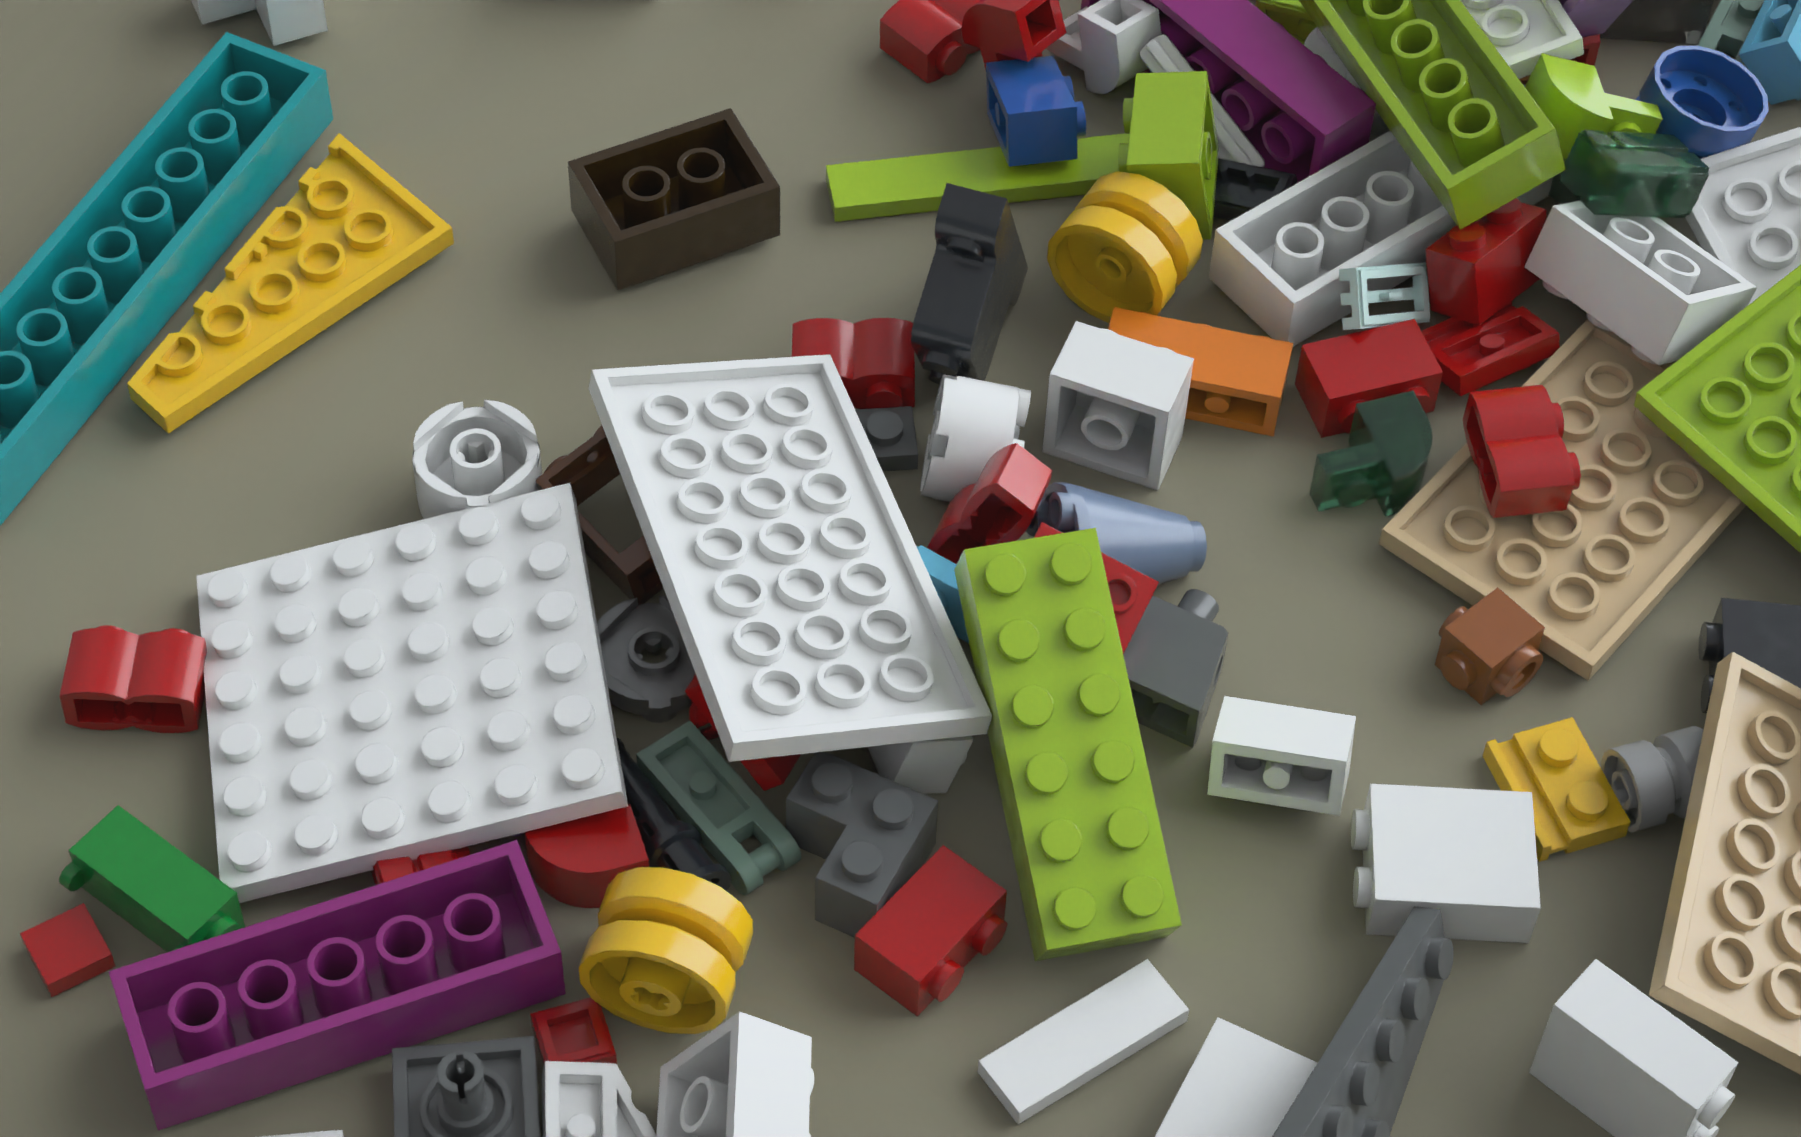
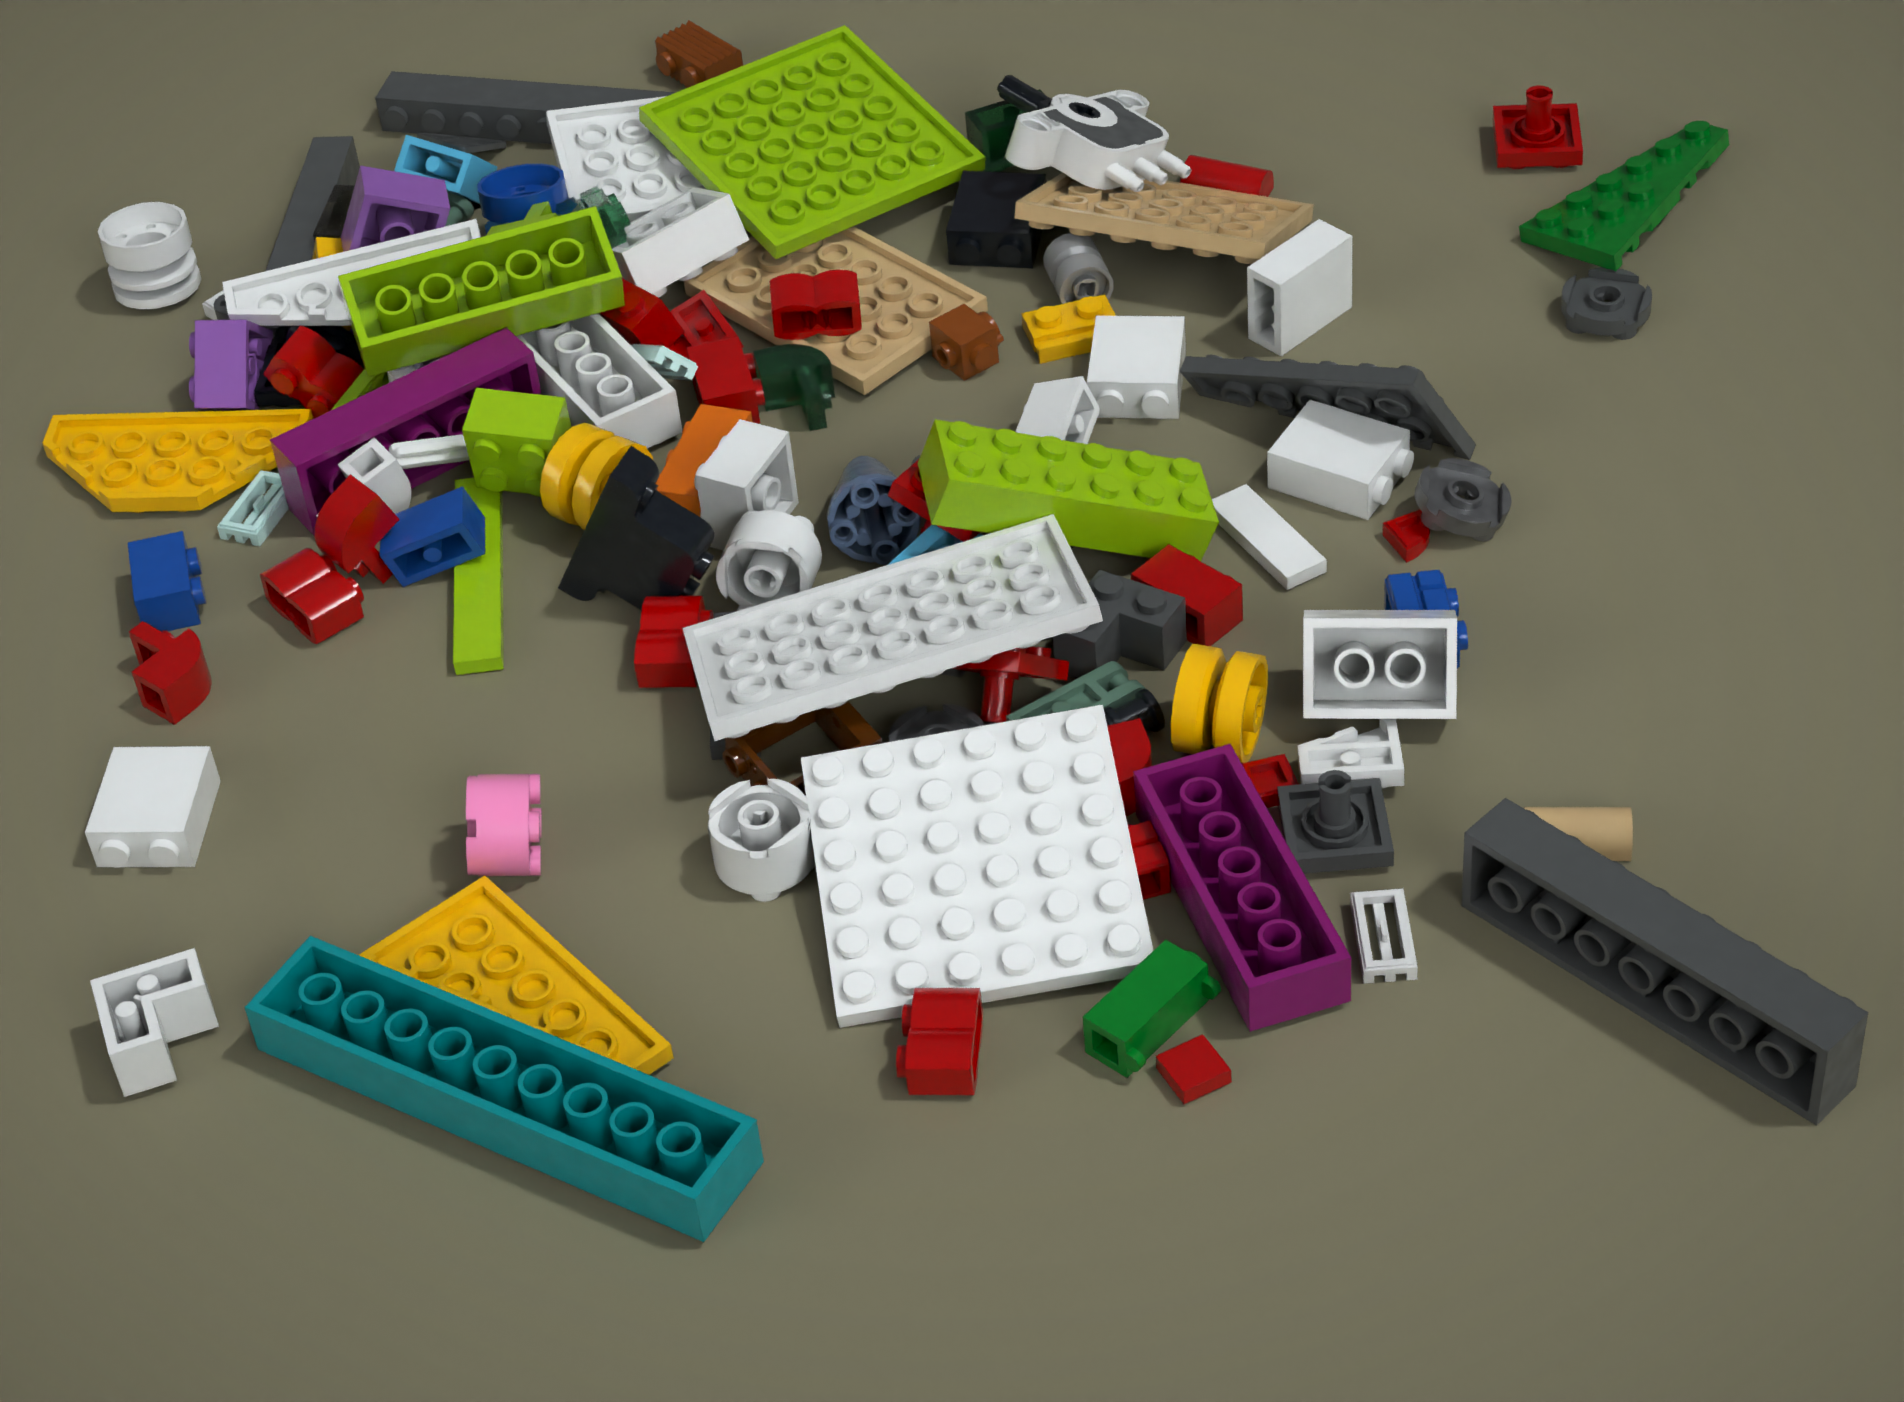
camera: 80 degrees left, 10 degrees down
(512, 225) = (503, 825): none -> bright pink brick
(674, 198) = (485, 724): dark brown brick -> none
(995, 506) = (850, 533): red brick -> none

